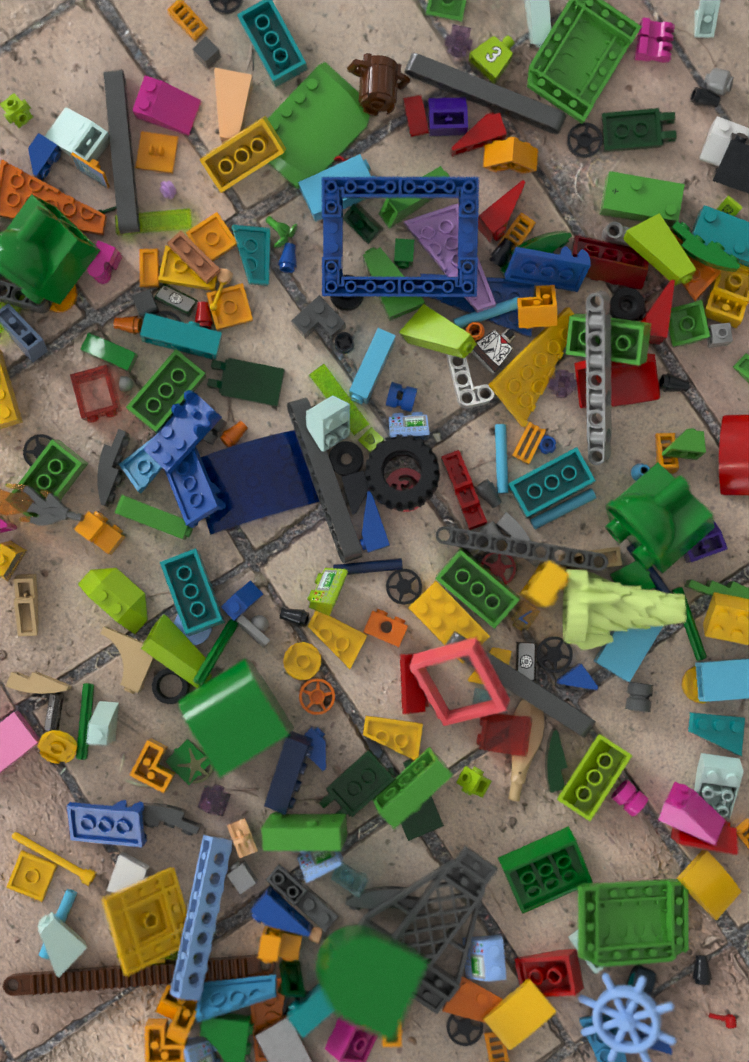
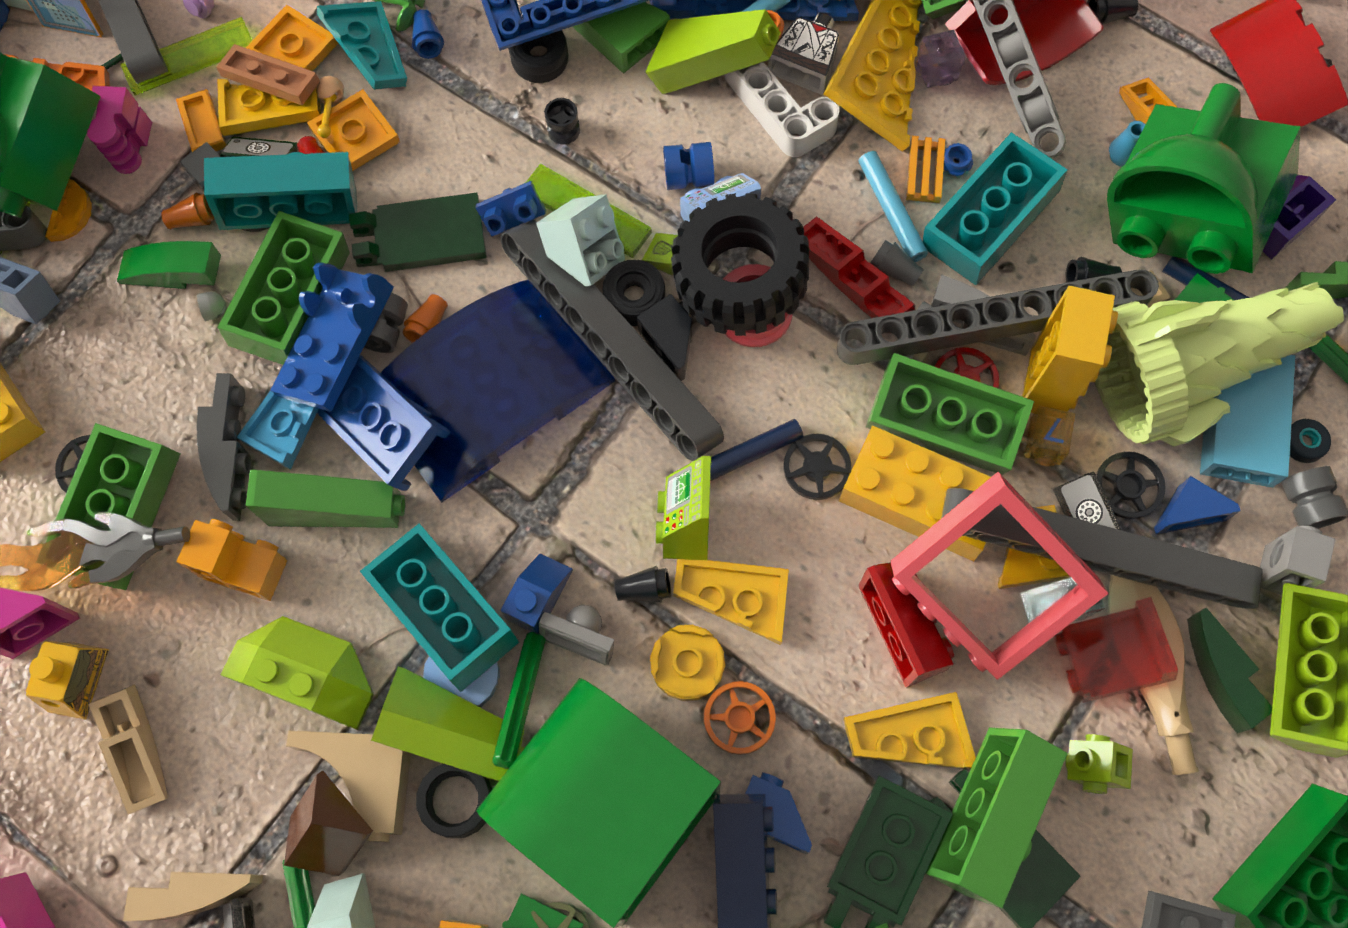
camera: 20 degrees left, 15 degrees down
(93, 374) = (147, 310): clear red window -> none
(106, 678) = (324, 830): none -> reddish brown slope
(298, 387) = (511, 208): none -> blue hips
(317, 315) = (506, 94): dark grey brick -> none
(372, 366) = (621, 132): medium azure brick -> none
(373, 530) = (728, 391): blue slope -> none
(374, 627) = (798, 556): orange brick -> none
(563, 509) = (1029, 247): medium azure piece -> none
(587, 537) = (1087, 268): none -> black cone
(611, 724) = (1297, 558): none -> light grey brick
(653, 657) = (1317, 433): none -> black wheel
(687, 445) = (1184, 79): bright green slope -> none

